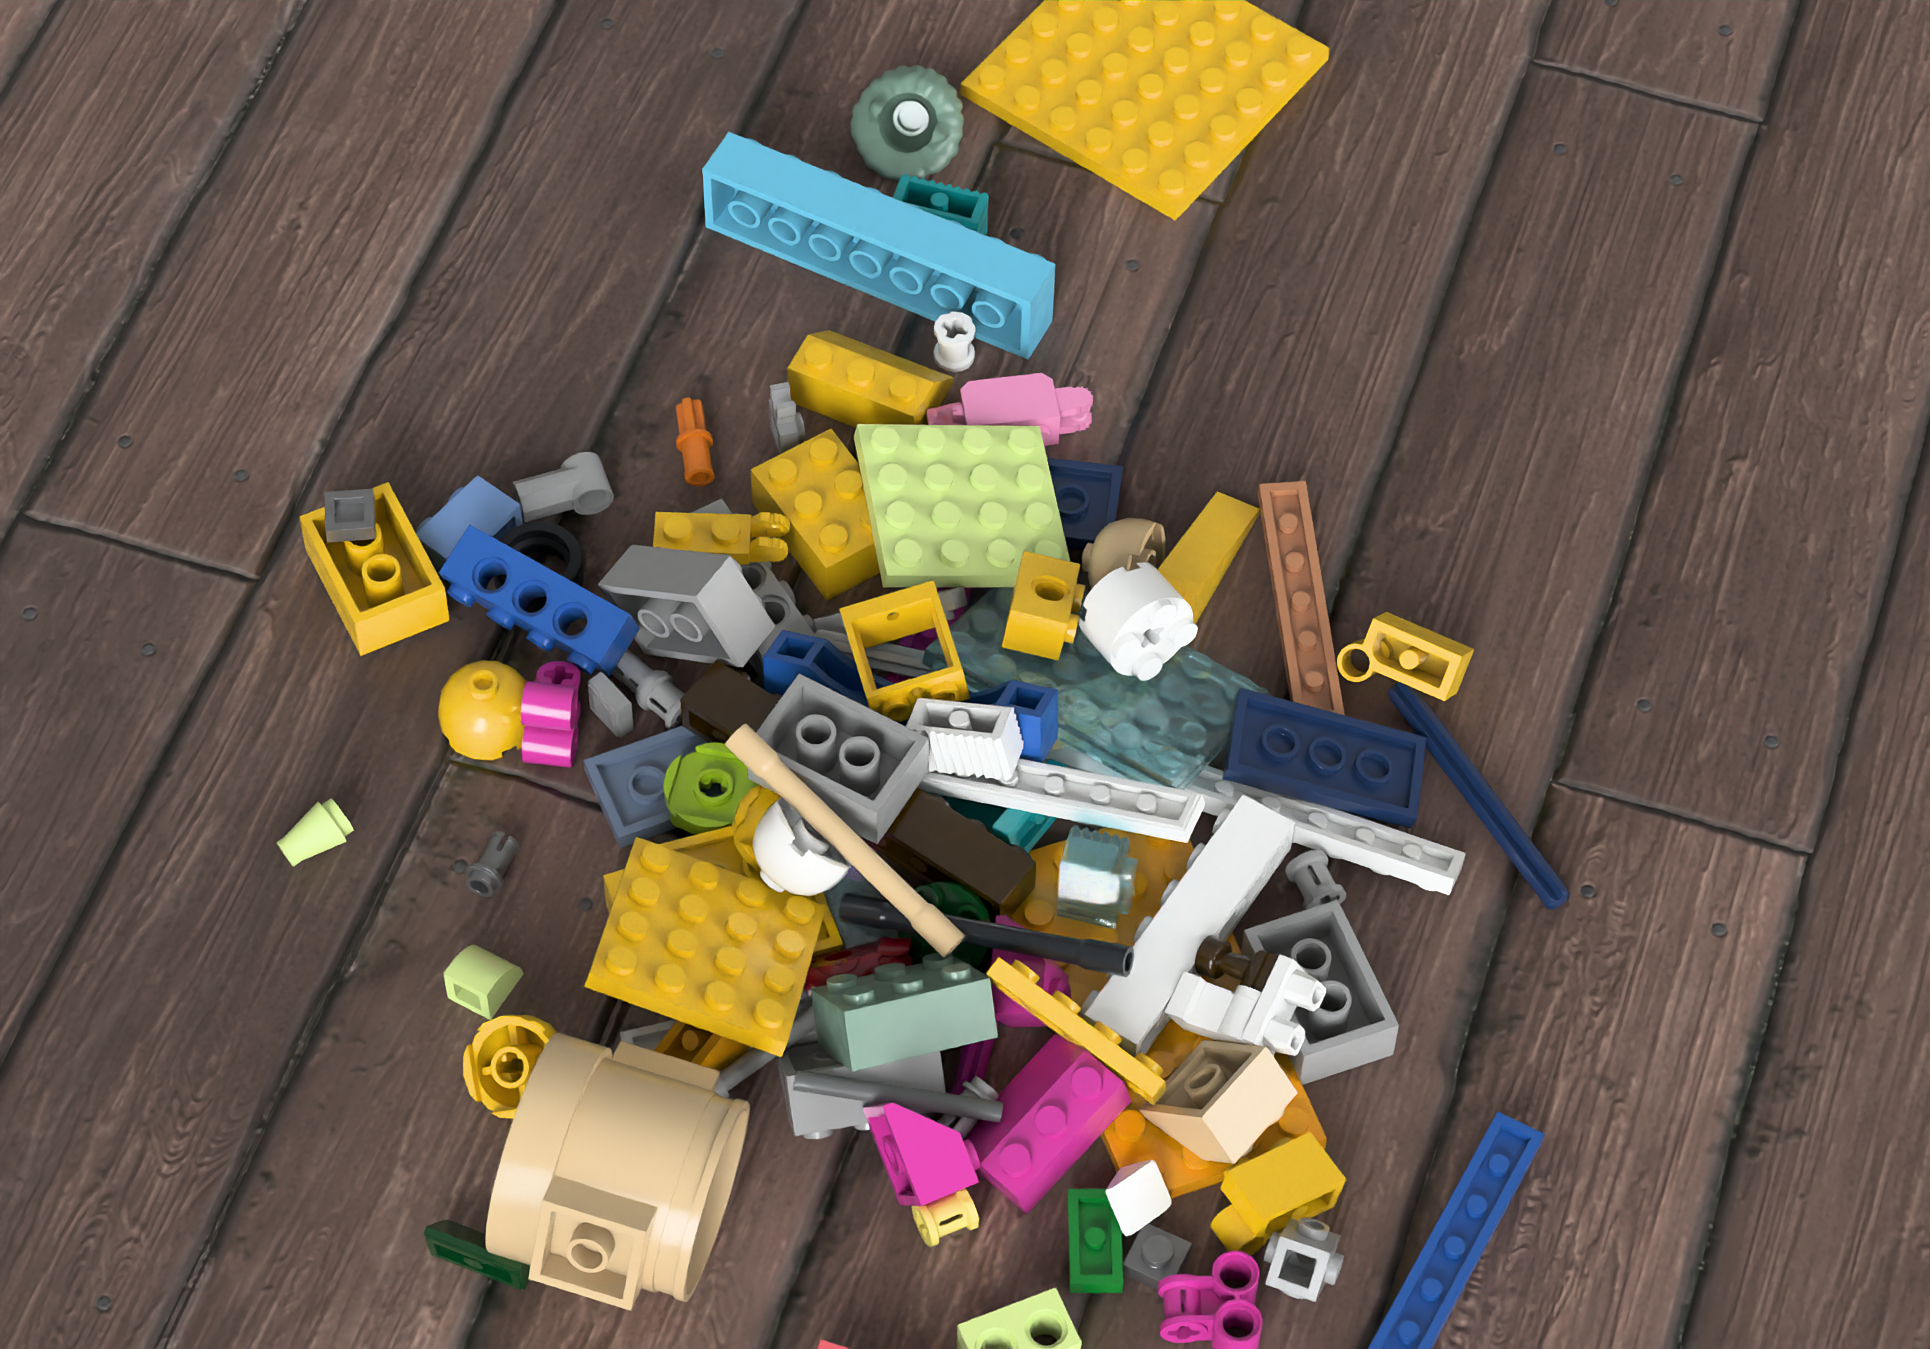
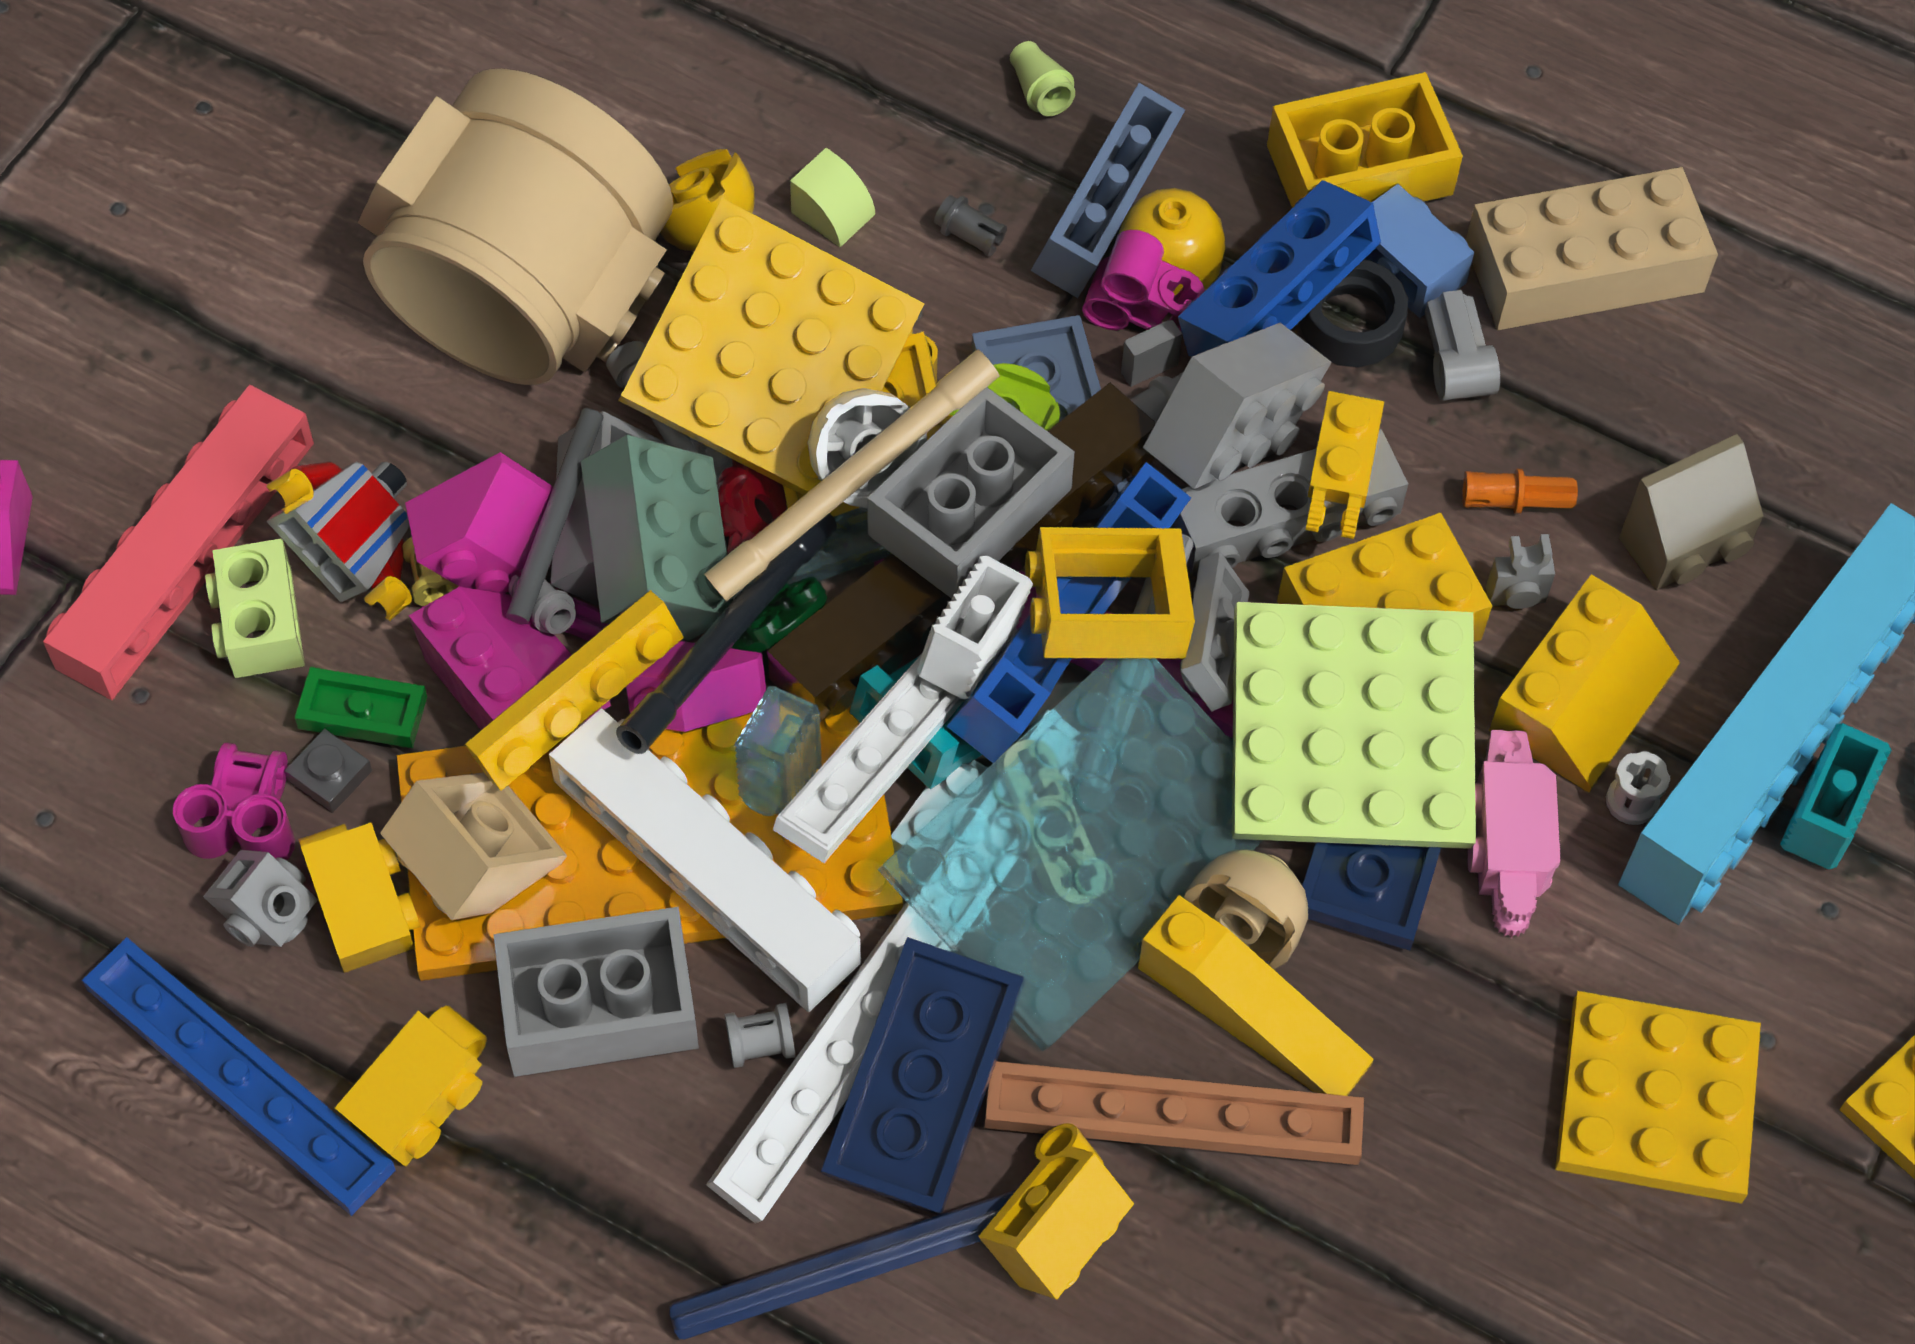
camera: 100 degrees right, 5 degrees up
(350, 515) = (1407, 103): flat silver plate -> none
(447, 404) = (1590, 248): none -> tan brick
(449, 751) = (1108, 190): none -> sand blue brick
(707, 318) = (1693, 514): none -> dark tan slope
(936, 1276) = (347, 528): none -> torso
(1043, 605) = (1208, 766): yellow brick -> none
(1137, 620) = (1123, 859): white brick -> none
(1138, 1195) = (389, 745): white slope -> none
(1198, 320) = (1659, 1097): none -> yellow plate
(1257, 1009) = (575, 878): white hips -> none
(1428, 1107) = (417, 1084): none -> yellow hinge

